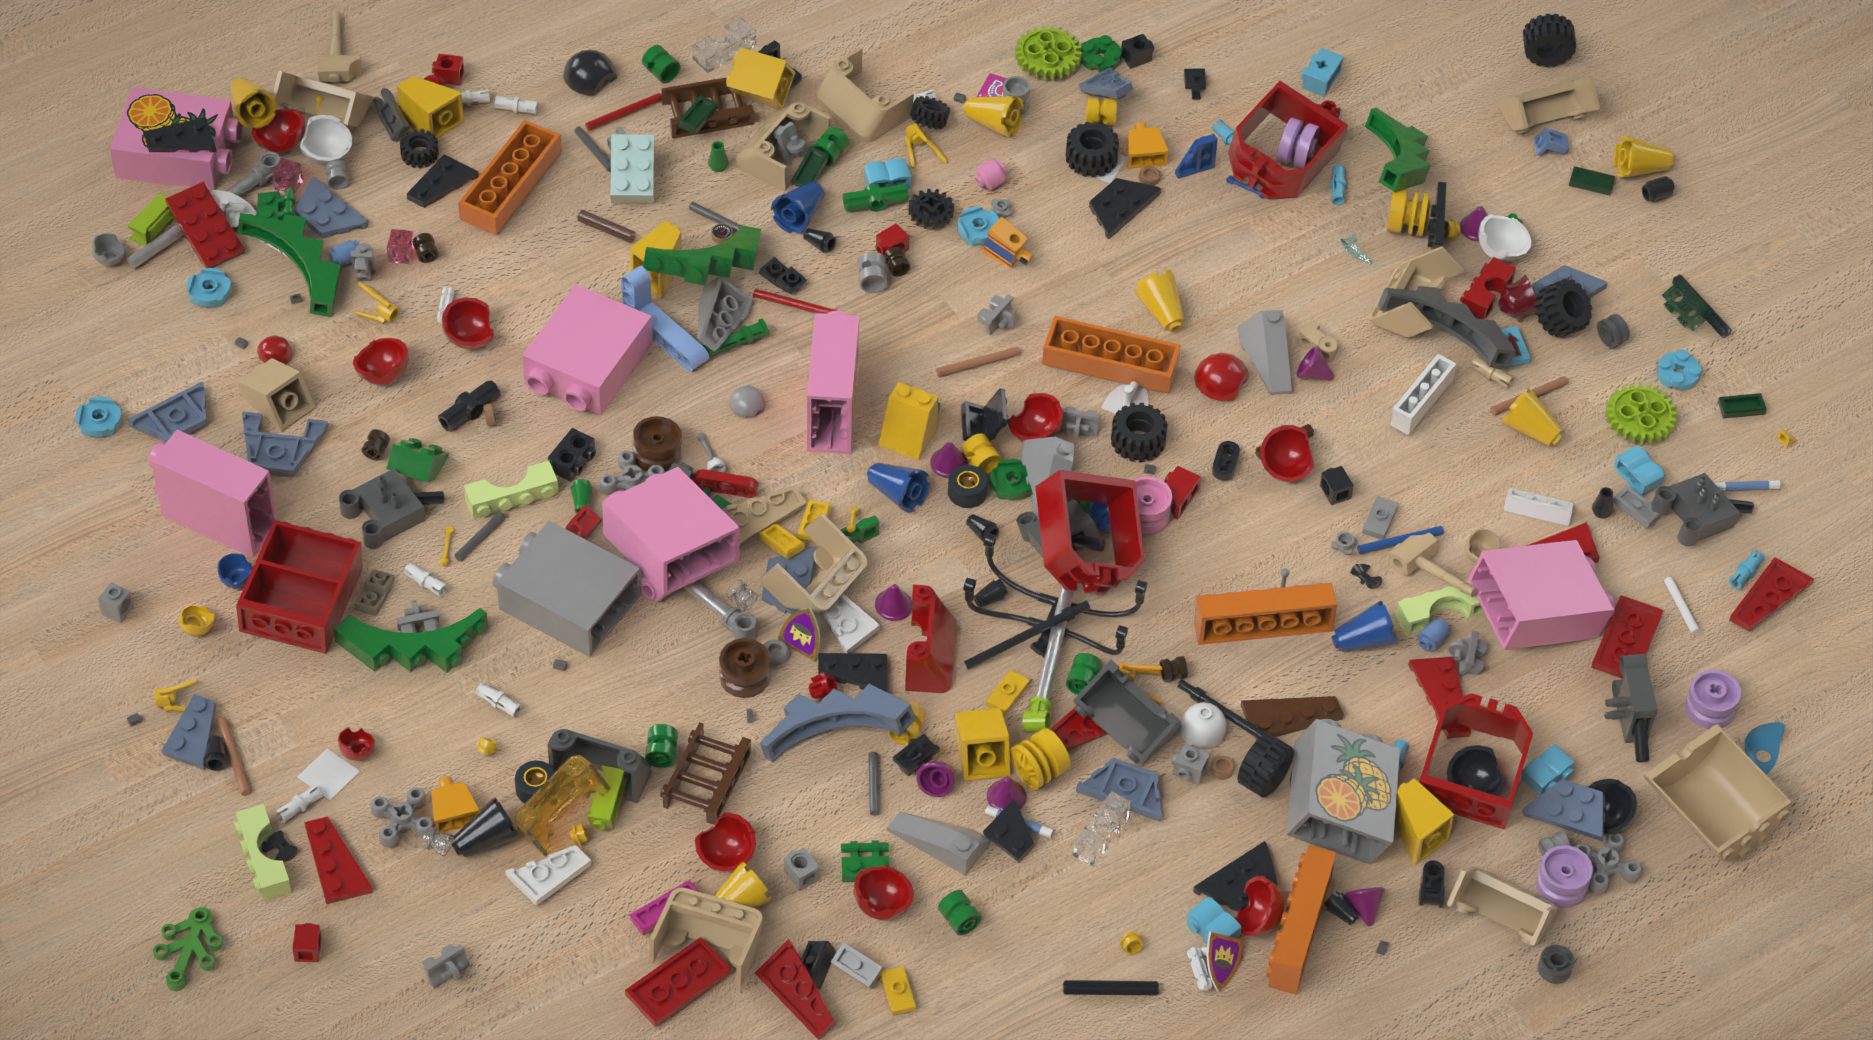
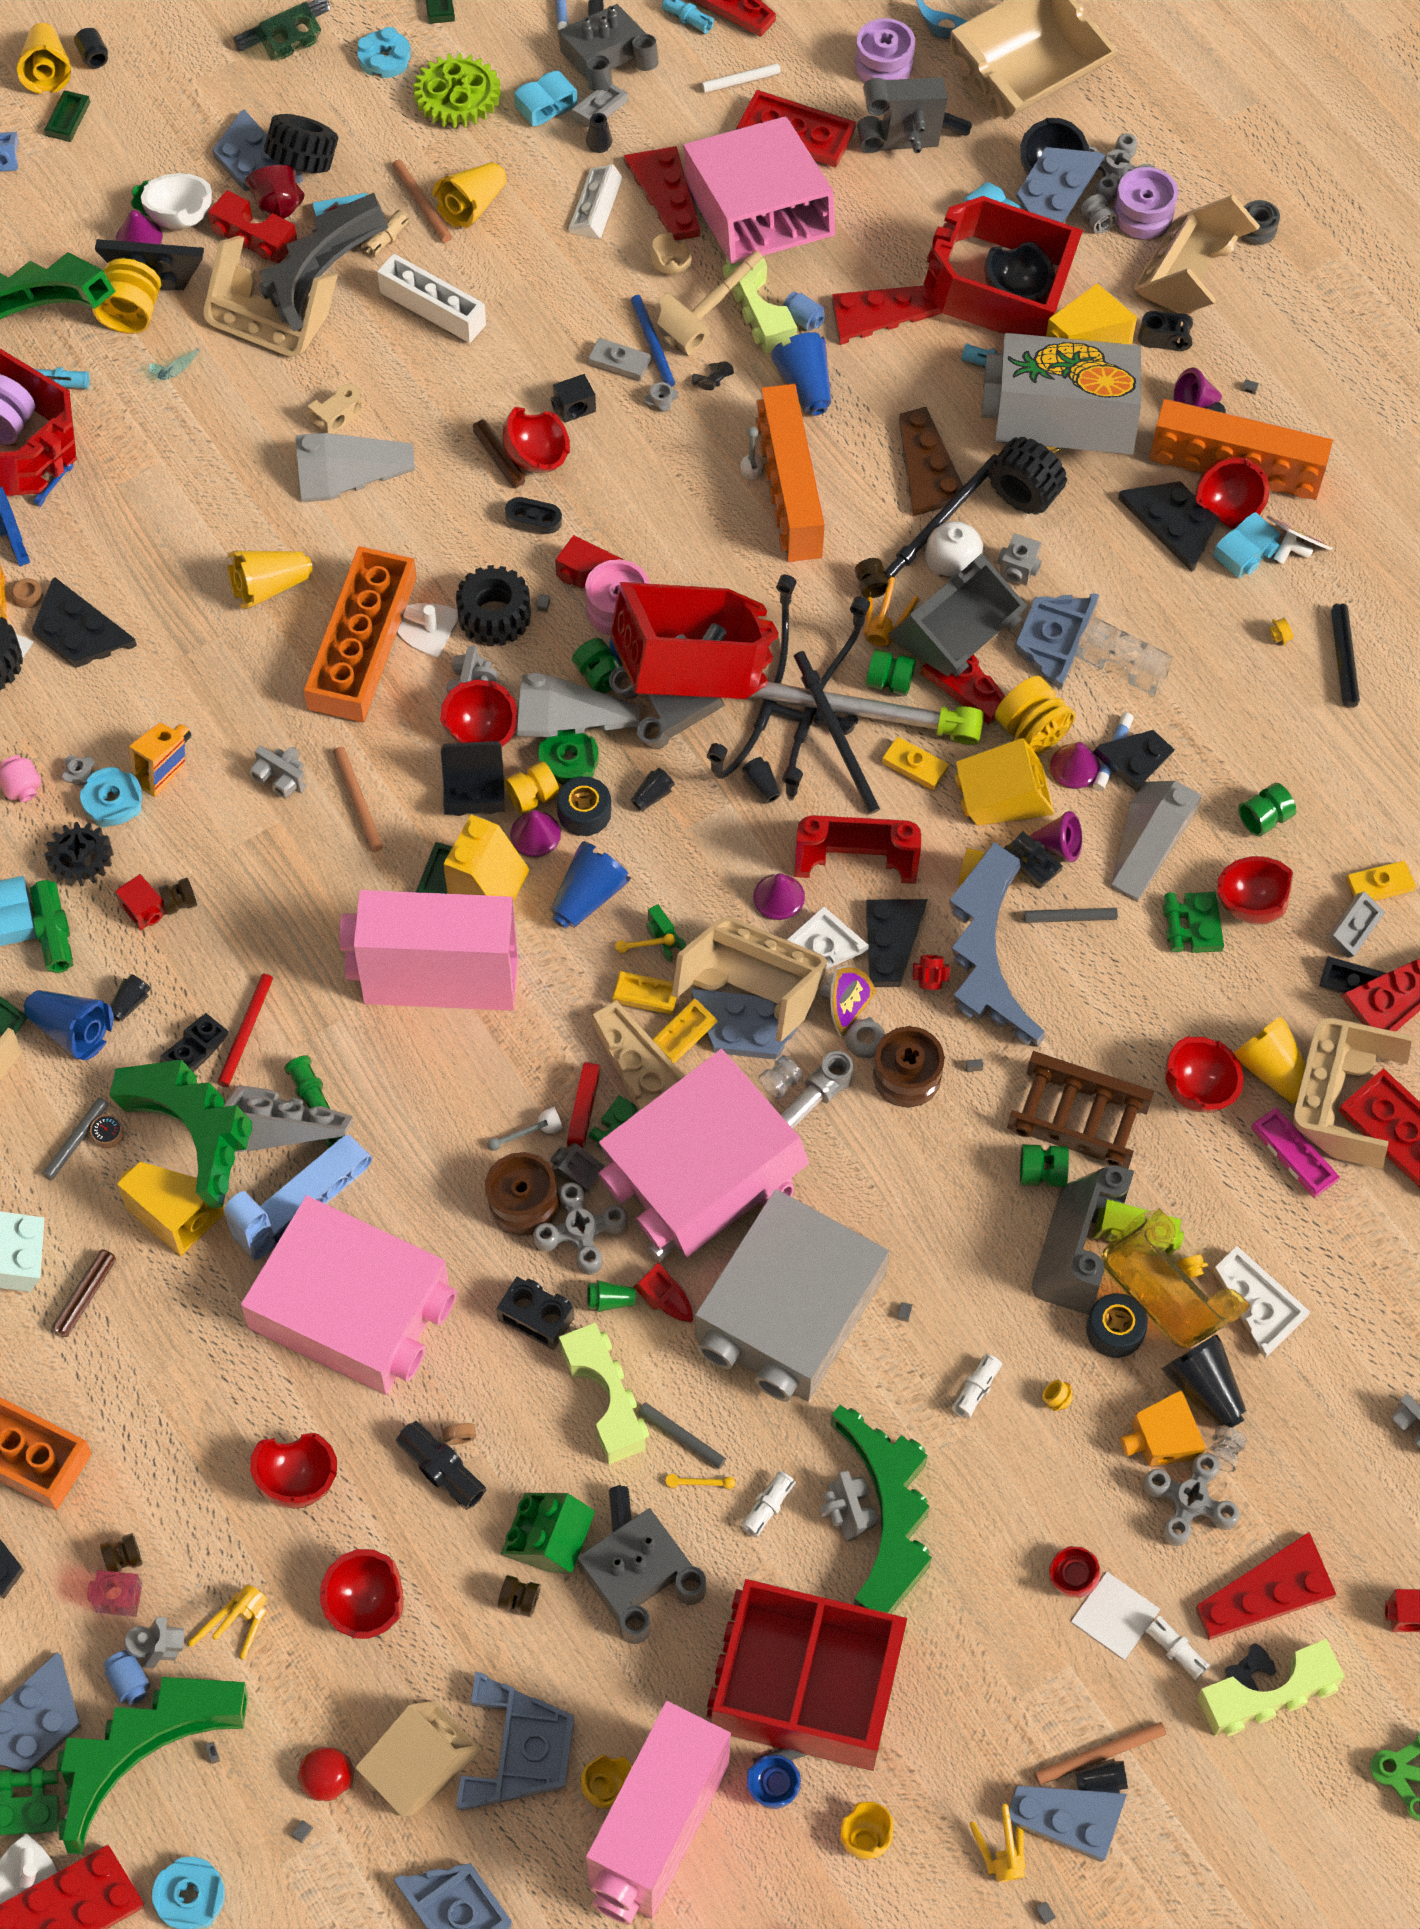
camera: 90 degrees left, 10 degrees up
(375, 592) = (789, 1573): dark tan slope -> none
(446, 298) = (236, 1517): white axle -> none
(746, 401) = (432, 1085): light grey hair -> none
(801, 876) = (1221, 980): light grey brick -> none
(872, 272) = (211, 924): light grey wheel -> none
(1199, 969) = (1307, 564): white axle -> none
(1221, 376) = (392, 517): red cylinder -> none
(1222, 767) = (1007, 530): medium nougat tile -> none
(1314, 366) = (376, 416): magenta hat -> none
(1465, 652) = (829, 277): light grey hips -> none
(1613, 330) = (328, 104): dark grey wheel -> none

